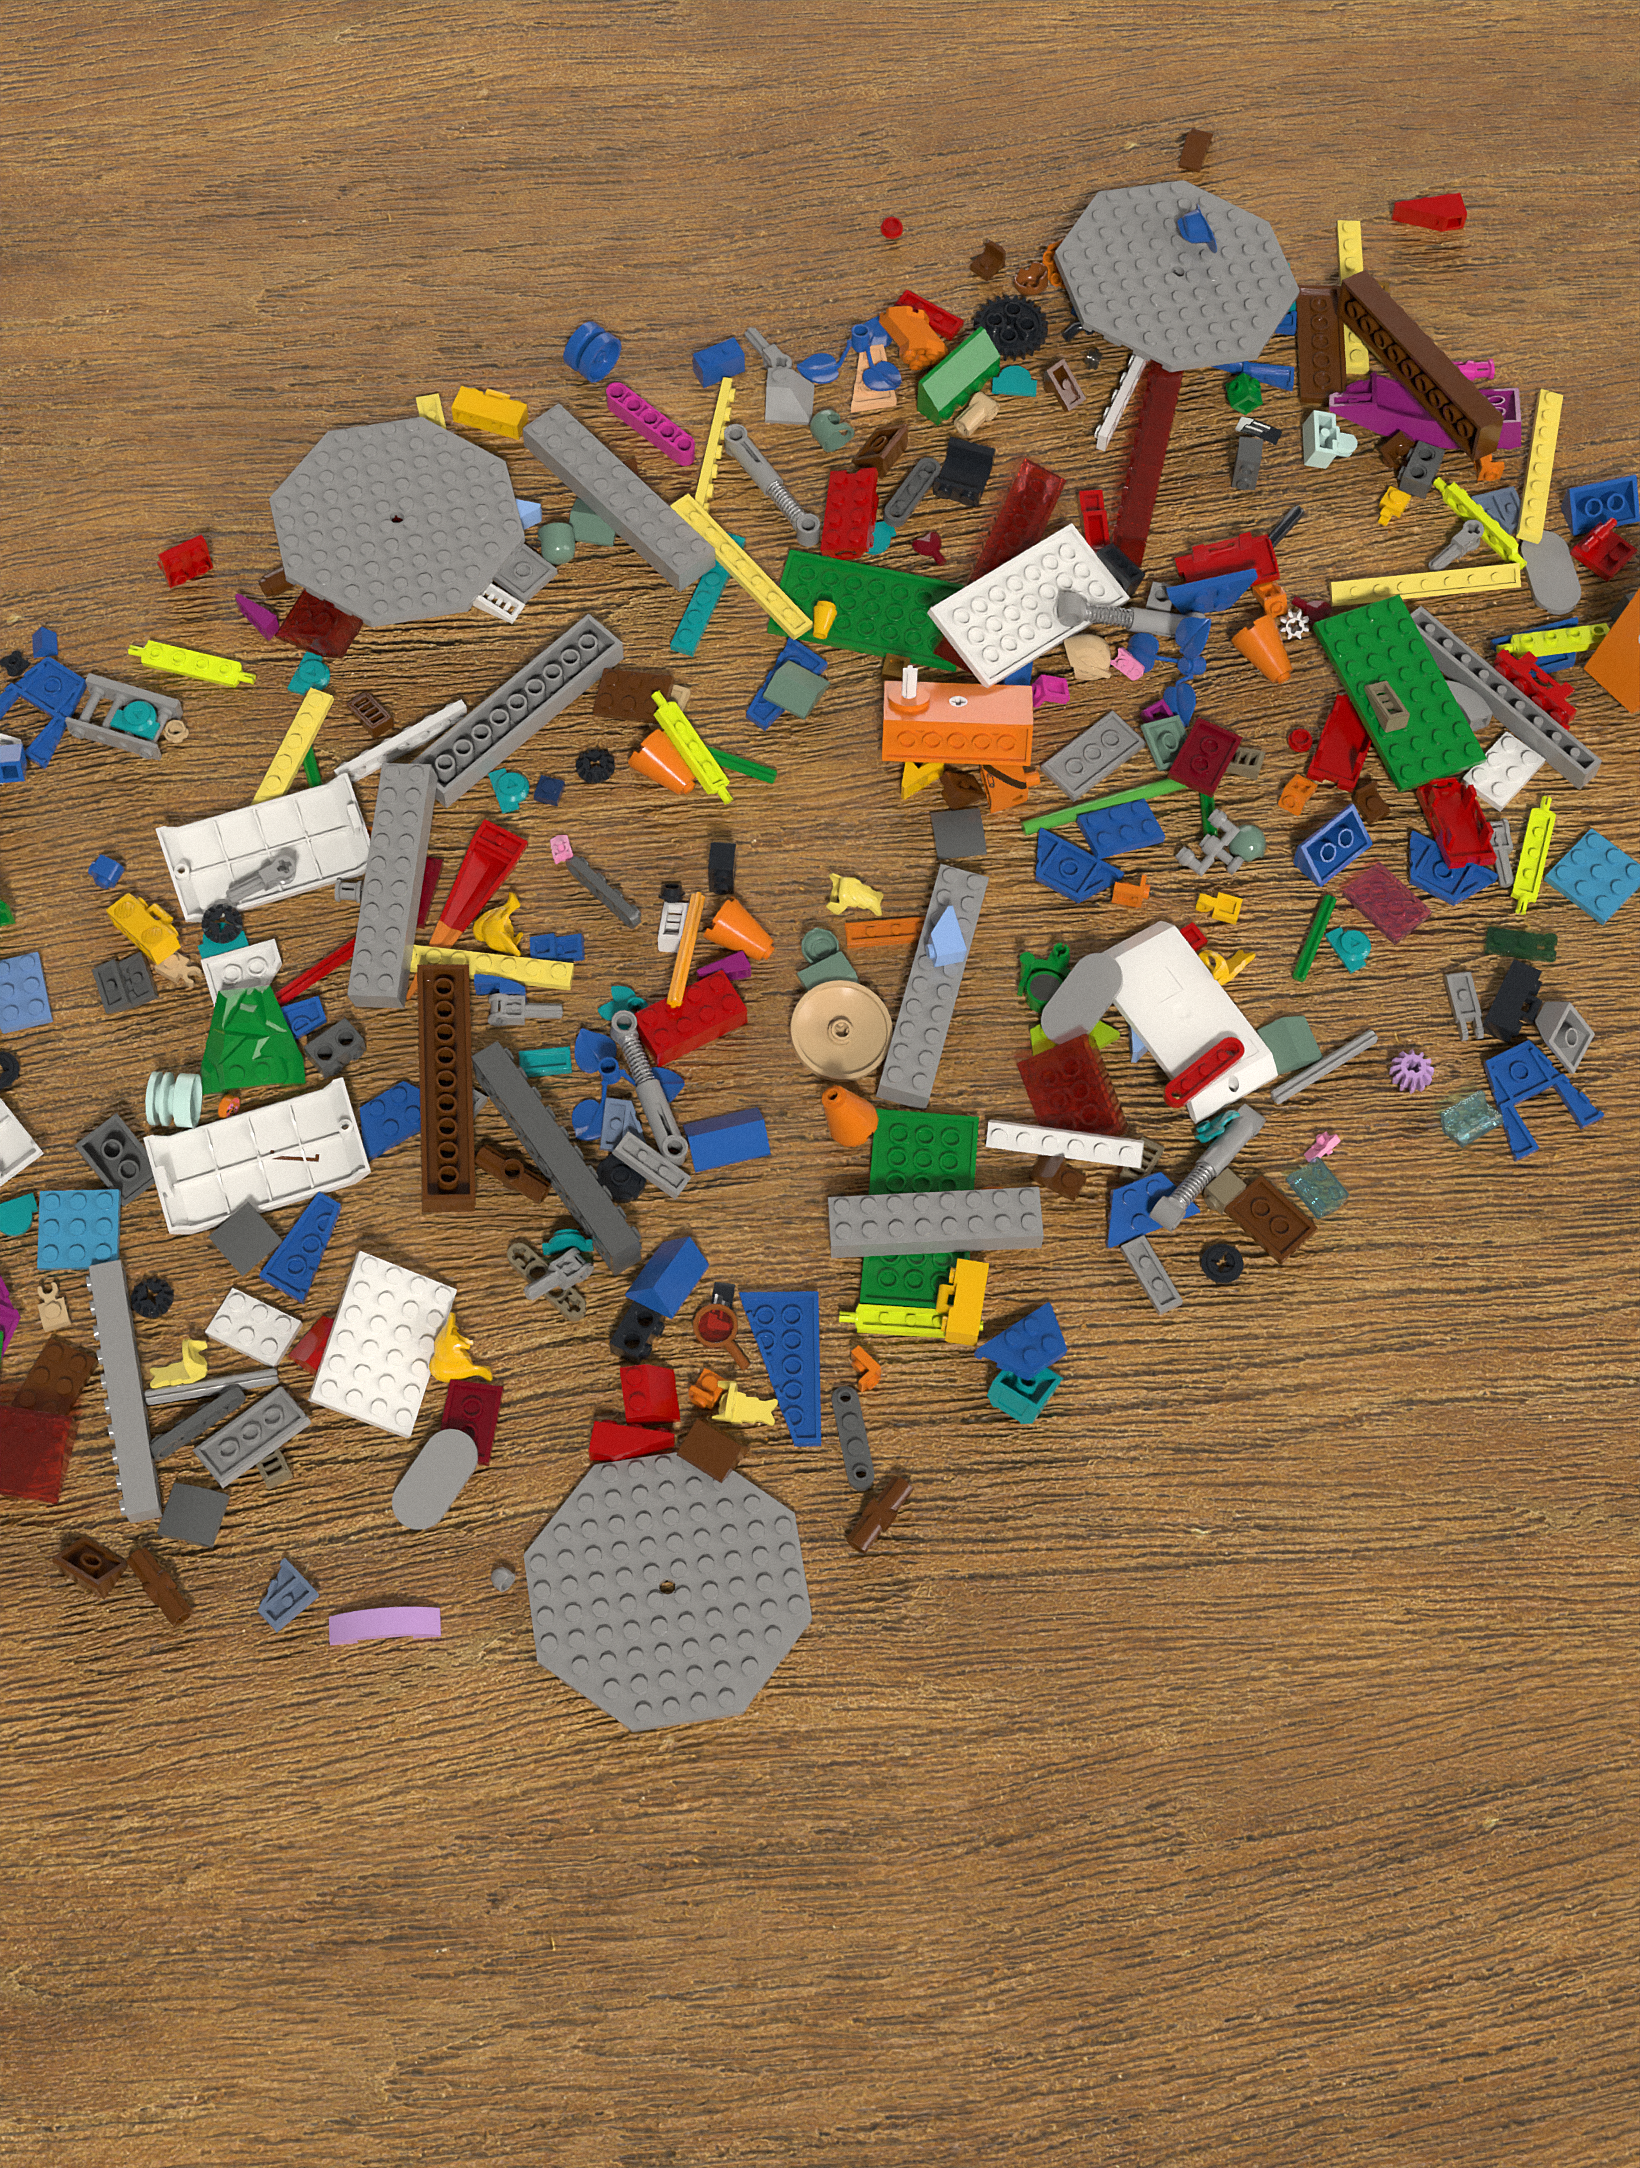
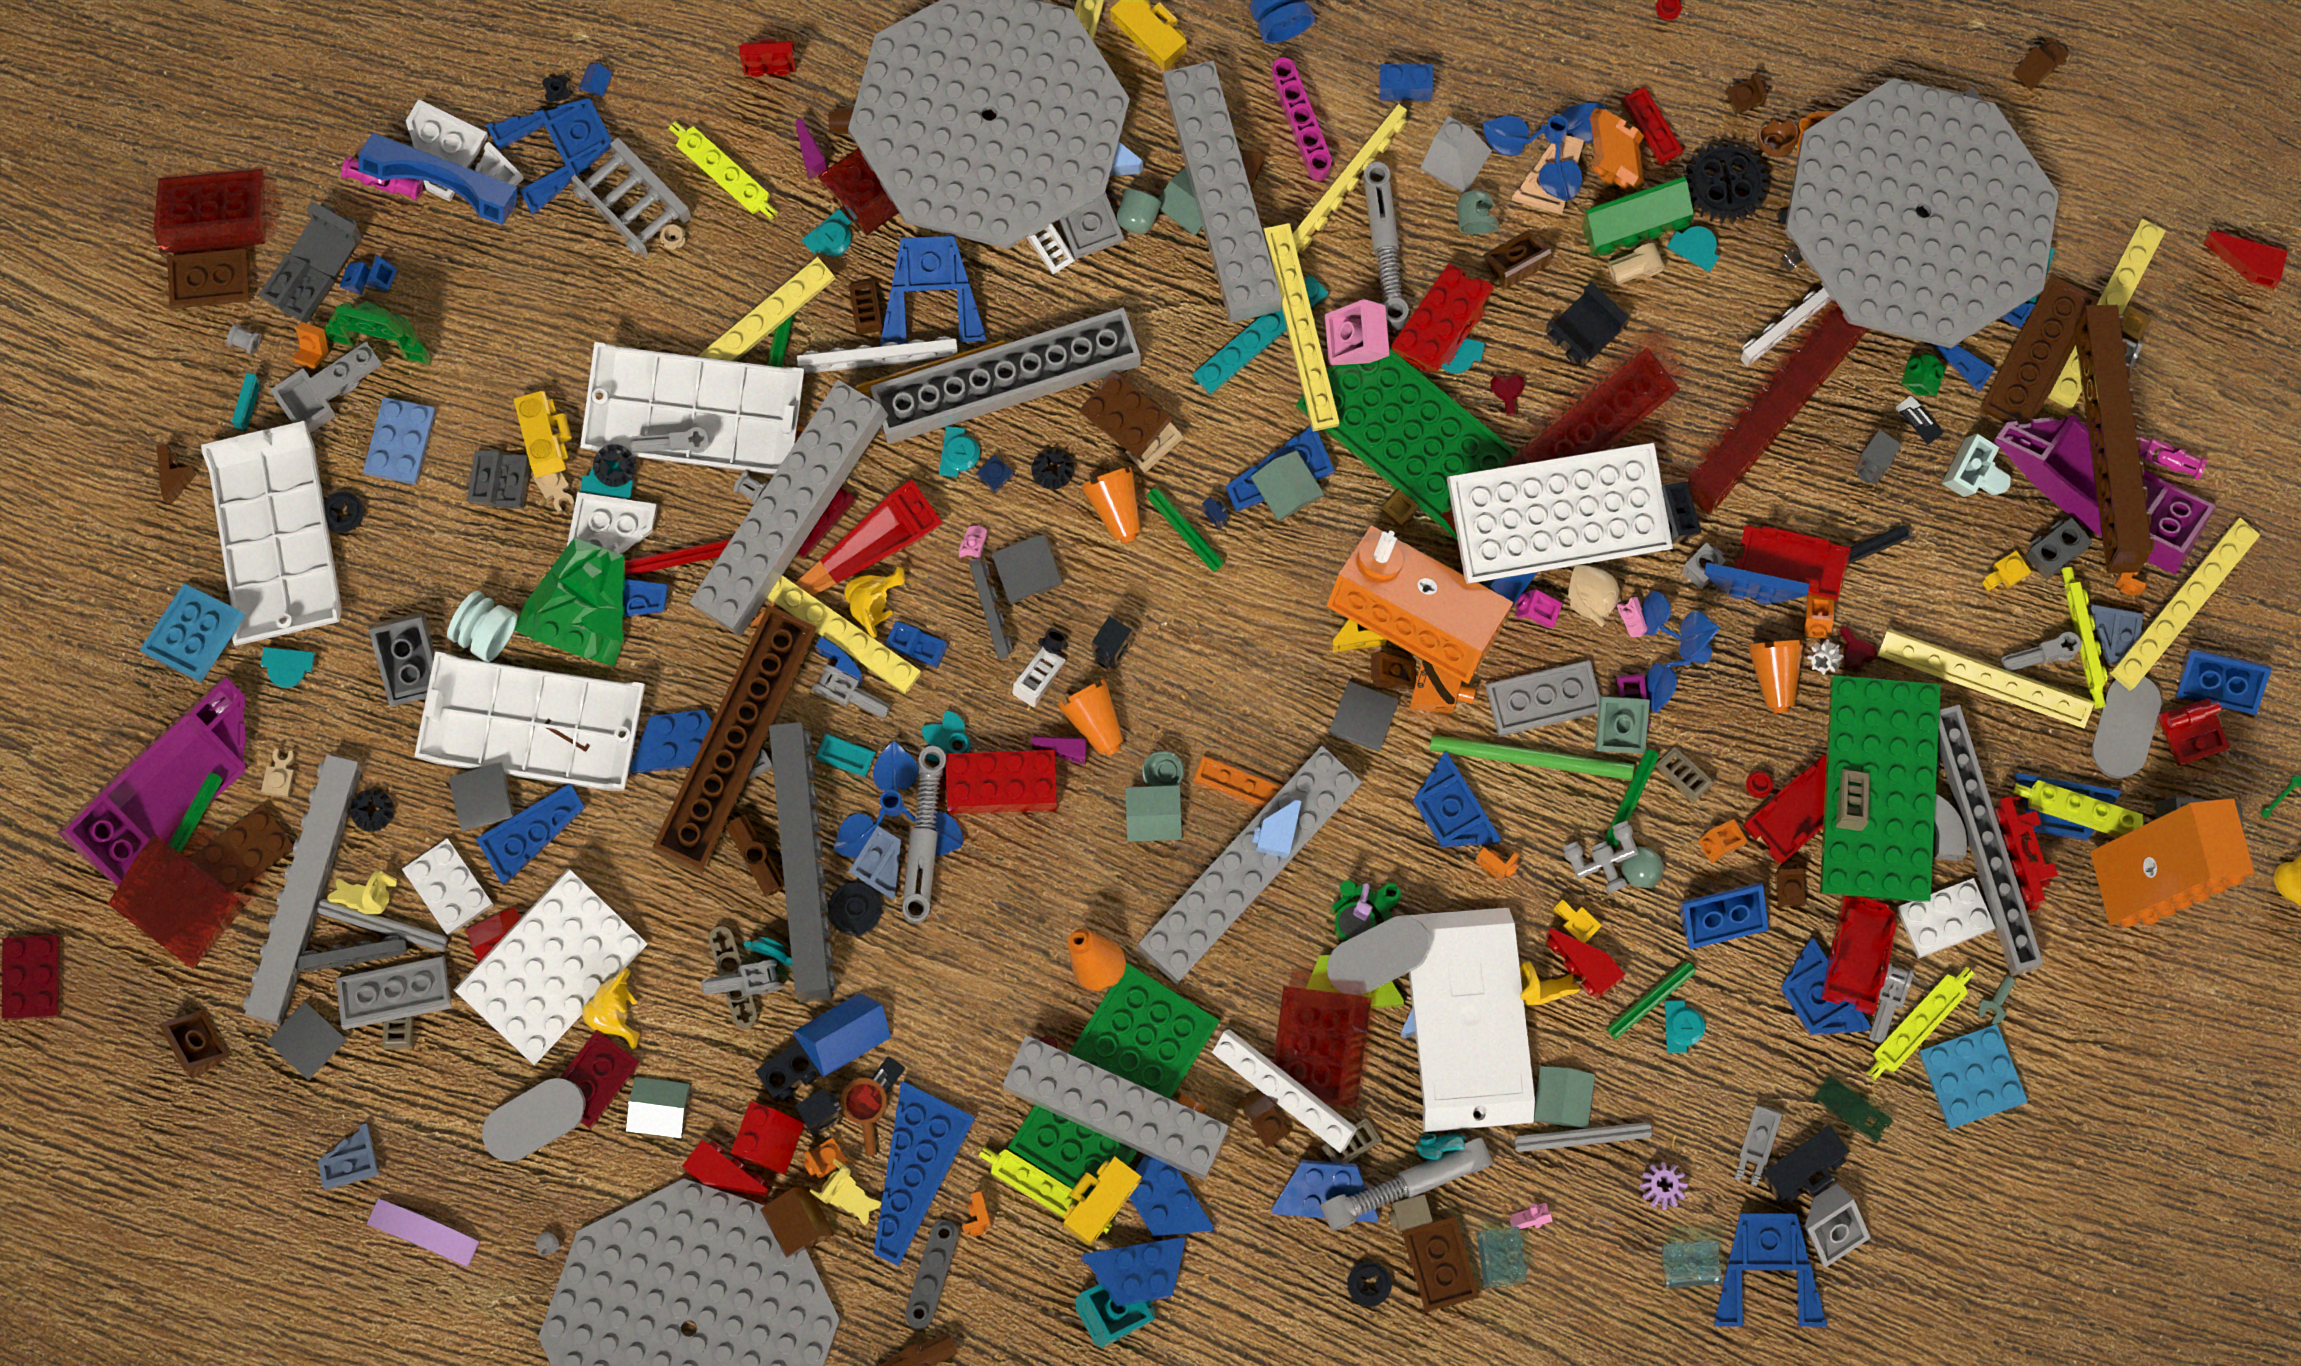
camera: 30 degrees right, 10 degrees up
(78, 1228) = (338, 710): dark azure plate -> none
(105, 872) = (534, 356): blue plate -> none
(138, 719) = (640, 208): teal piece -> none
(159, 1587) = (244, 1094): reddish brown piece -> none
(228, 1106) = (530, 656): orange tile -> none
(331, 1044) = (656, 638): dark grey brick -> none
(411, 651) = (925, 266): none -> blue wing
(538, 1419) = (657, 1107): none -> slope
(618, 848) = (1027, 568): none -> dark grey slope
(651, 1165) = (886, 913): light grey plate -> none
(684, 1349) = (819, 1112): none -> black brick
(685, 950) = (1032, 711): light orange axle -> none
(691, 748) = (1150, 500): neon yellow plate -> none
(727, 1139) = (972, 920): blue slope -> none
(748, 737) = (1215, 512): none -> dark blue plate
(771, 354) = (1462, 94): light grey connector -> none
(788, 552) = (1357, 333): none -> bright pink slope
(823, 618) = (1353, 423): yellow cone -> none
(841, 1031) = (1135, 868): tan dish -> none
(853, 894) = (1224, 731): light yellow hair -> none
(911, 492) = (1520, 323): dark grey plate -> none
(1018, 1282) = (1167, 1201): none -> blue wing
(1045, 973) = (1362, 908): none -> lavender hand
(1064, 385) = (1741, 277): slope -> none
(1075, 611) = (1601, 542): light grey piece -> none
(1093, 518) = (1686, 446): red slope -> none
(1120, 829) = (1524, 791): blue plate -> none
(1151, 1275) = (1295, 1261): light grey plate -> none
(1194, 936) = (1528, 940): red plate -> none
(1196, 229) = (1962, 172): blue piece -> none
(1203, 1072) = (1451, 1090): red plate -> none
(1205, 757) = (1648, 759): dark red plate -> none
(1248, 932) = (1592, 966): none -> red slope
(1387, 903) = (1743, 1000): clear pink plate -> none
(1396, 447) = (2043, 513): reddish brown bracket -> none
(1580, 815) = (1997, 1001): none -> sand green bar

